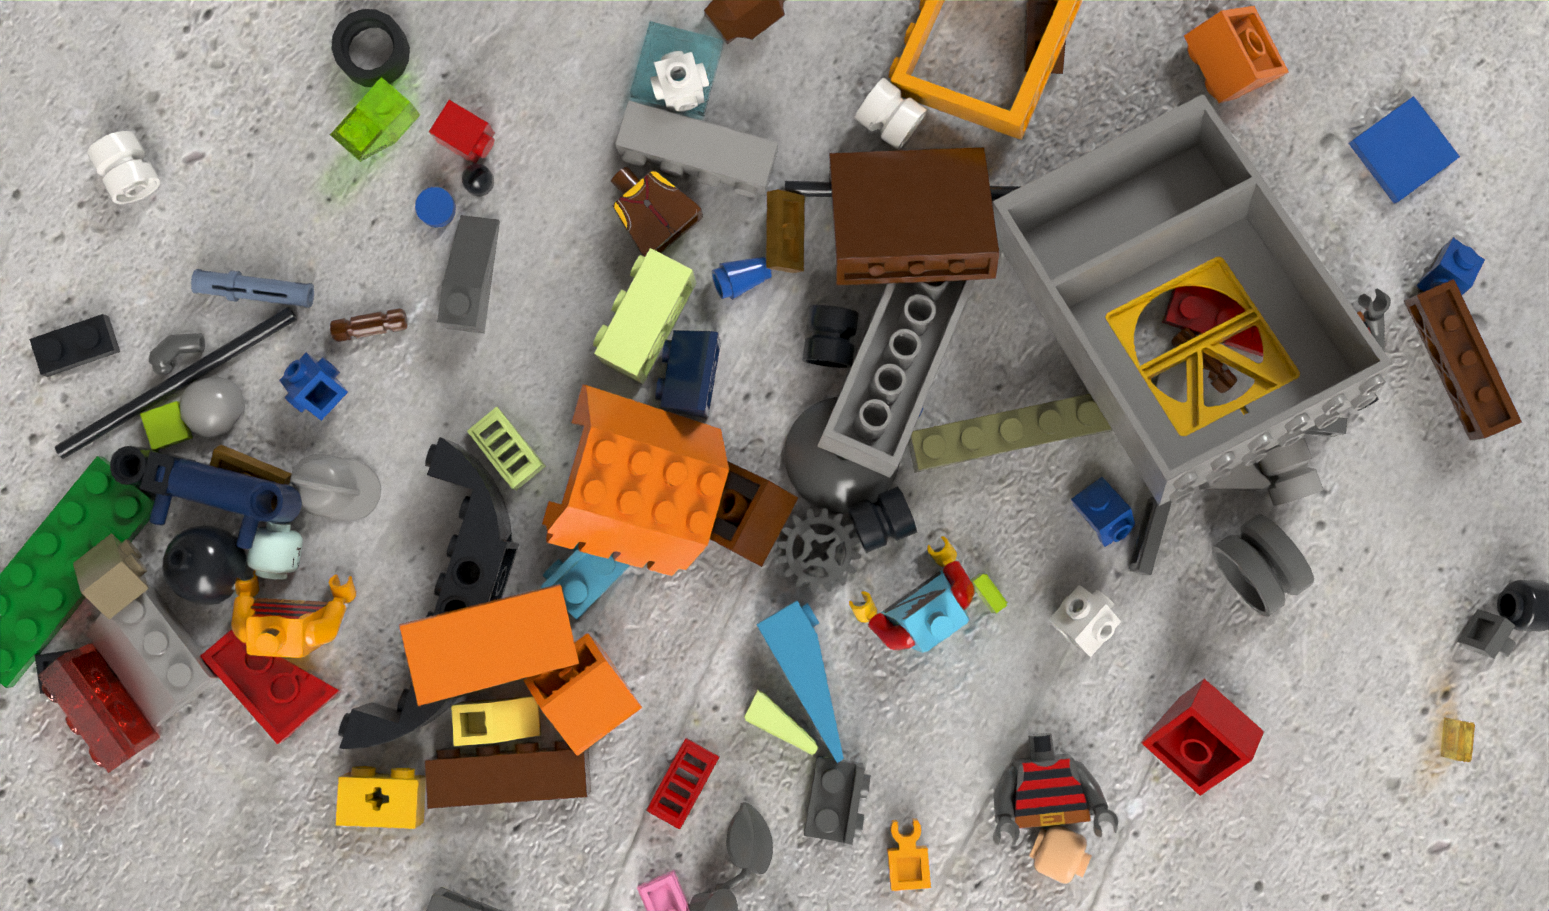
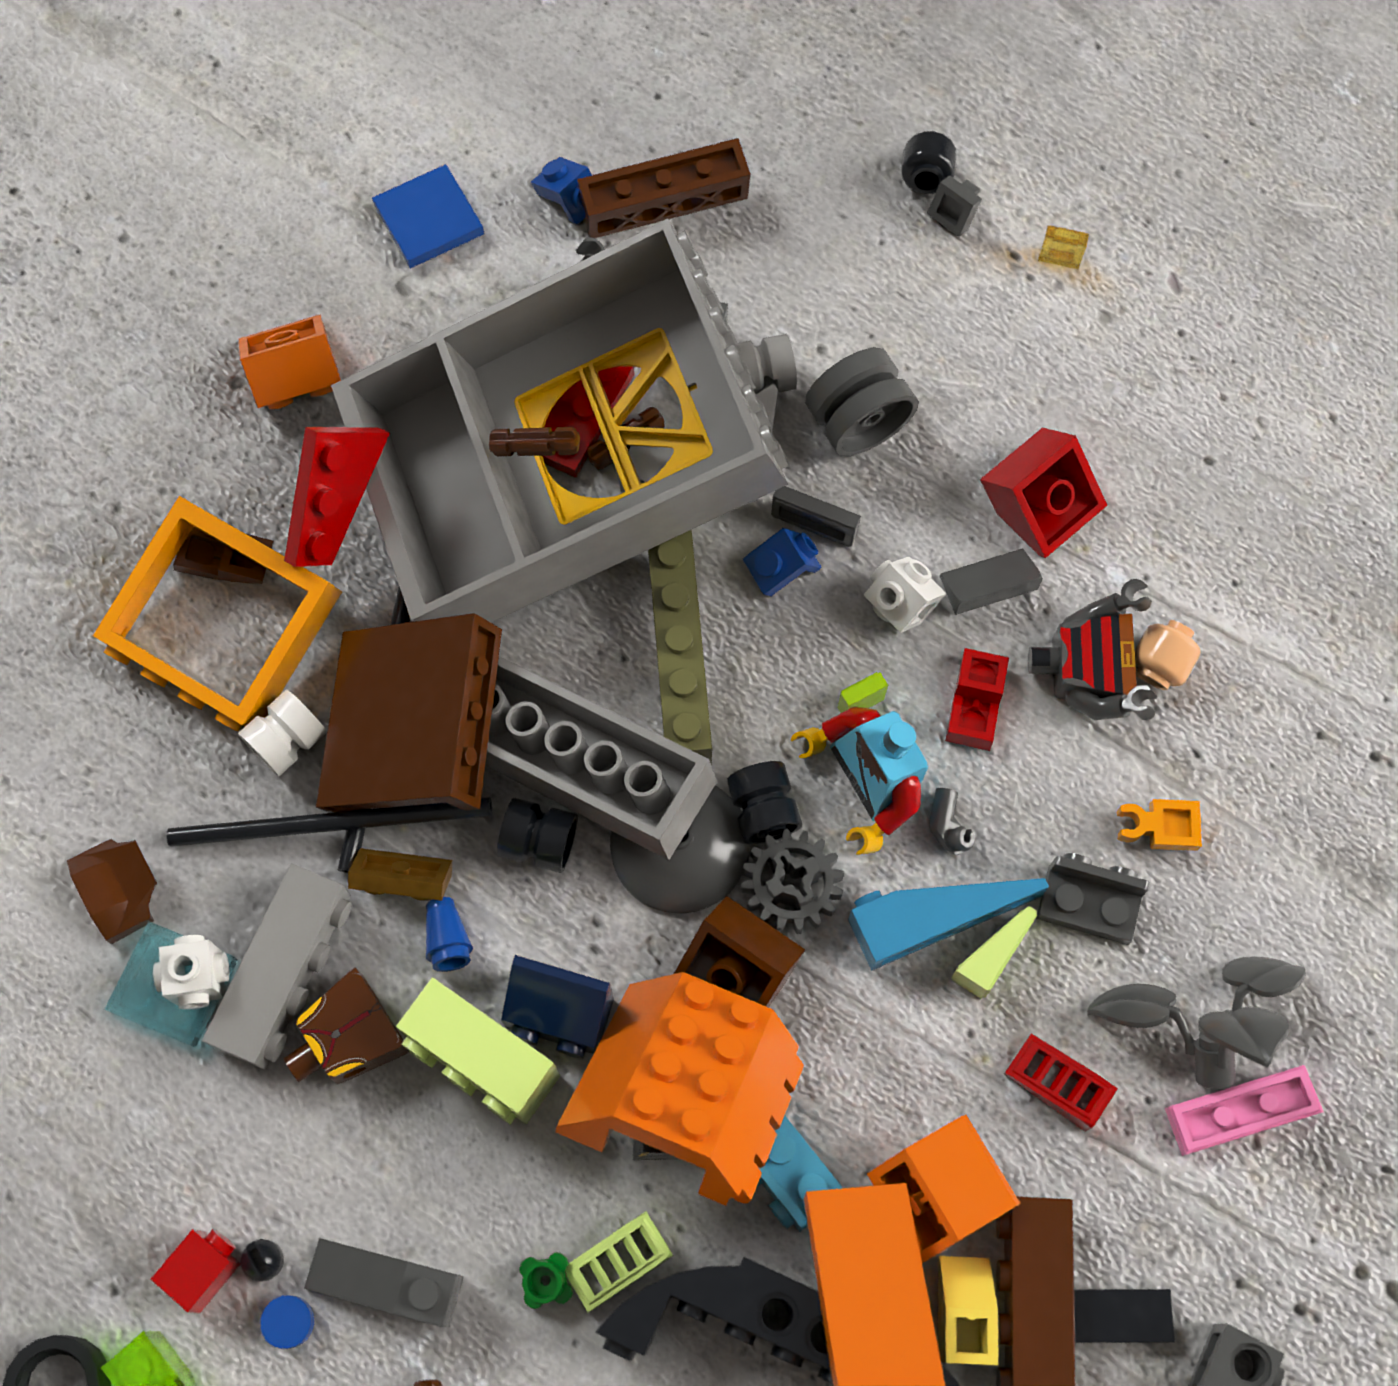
camera: 85 degrees left, 15 degrees down
(480, 386) = (535, 1291): none -> green plate
(509, 842) = (1123, 1316): none -> black tile
(816, 145) = (322, 823): none -> black piece
(883, 673) = (945, 827): none -> dark grey arm
(1000, 692) = (977, 699): none -> red slope
(1100, 110) = (329, 488): none -> red wing
(1112, 695) = (991, 581): none -> dark grey slope
(1161, 278) = (534, 441): none -> reddish brown axle

